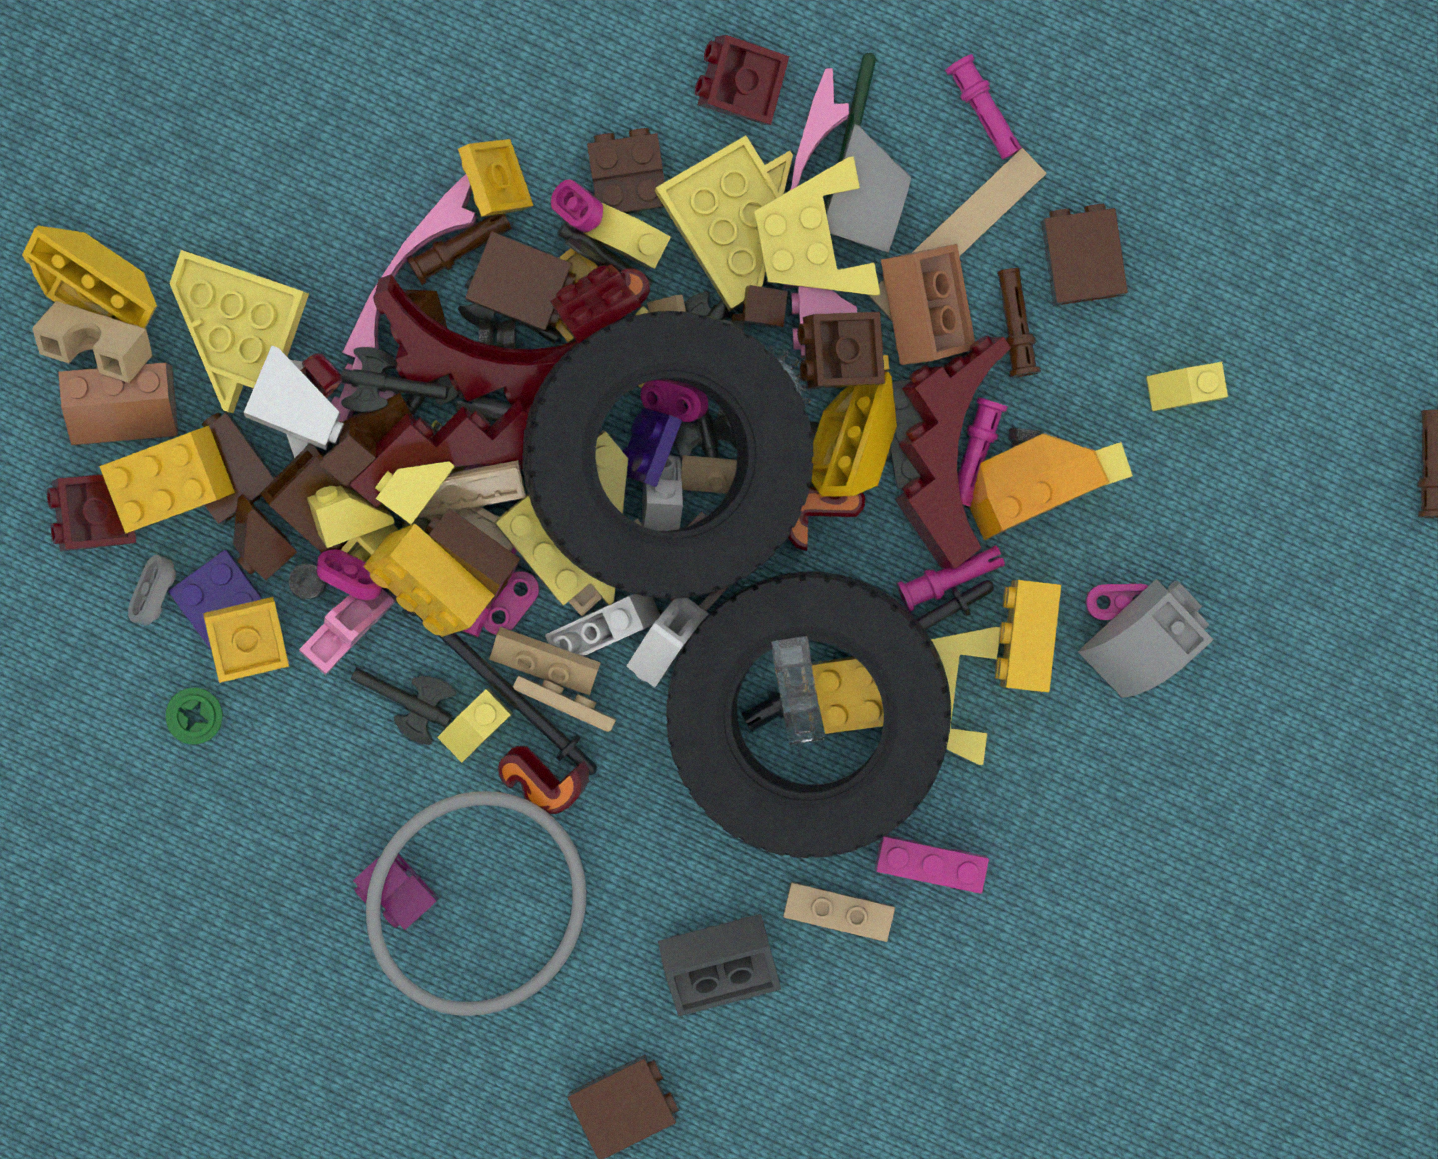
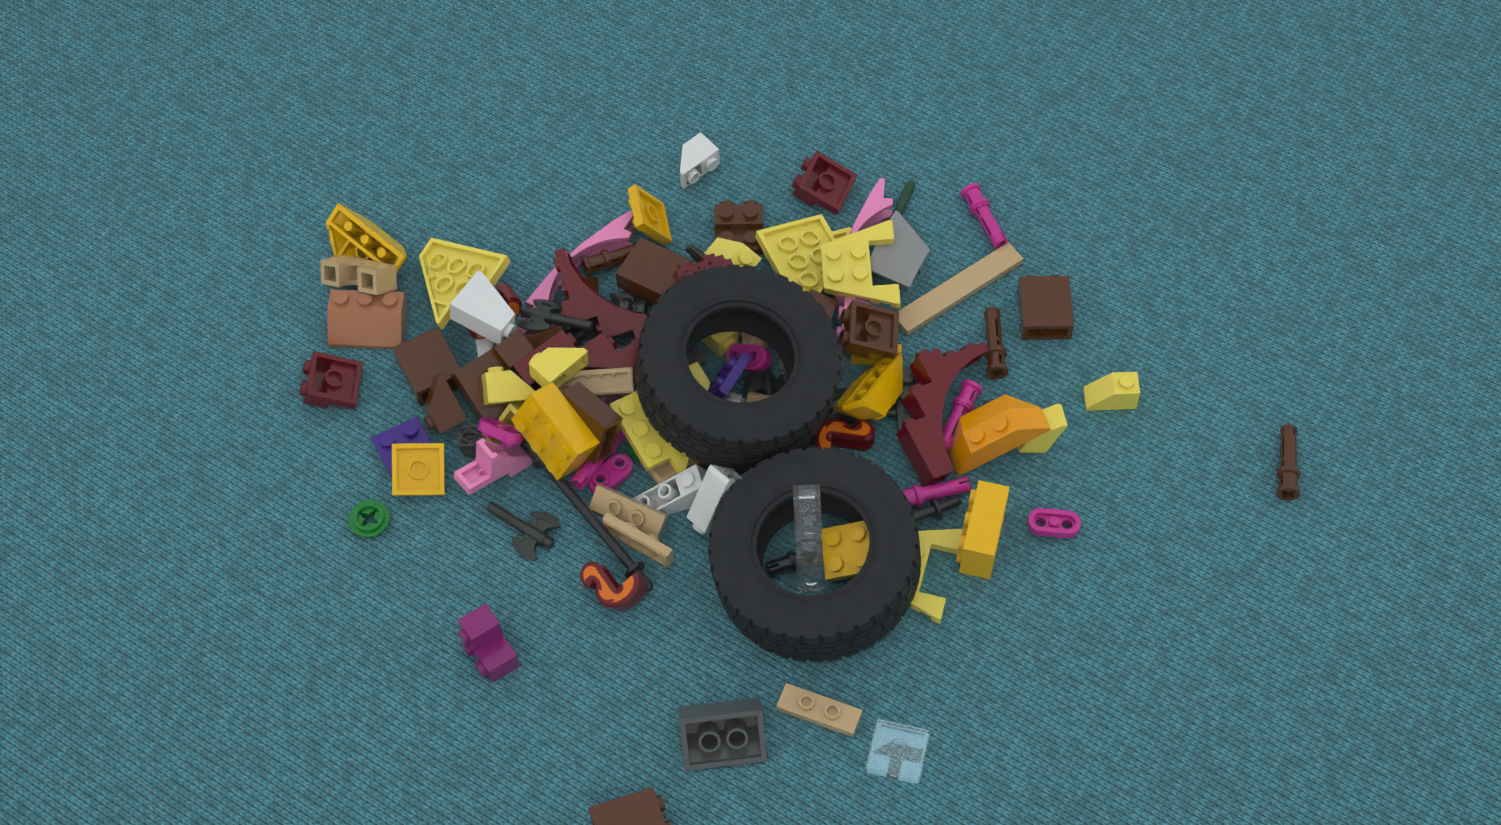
camera: 10 degrees right, 30 degrees down
(151, 590) = (354, 442): light grey plate -> none
(167, 479) = (387, 356): yellow brick -> none
(391, 851) = (487, 708): light grey piece -> none
(475, 725) = (570, 546): light yellow slope -> none
(546, 57) = (697, 159): none -> white slope
(577, 206) = (702, 237): dark pink plate -> none
(928, 304) = (932, 316): nougat slope -> none
(931, 864) = (876, 672): dark pink arch -> none
(946, 954) = (897, 751): none -> clear tile
(1148, 639) = (1070, 544): light grey piece -> none

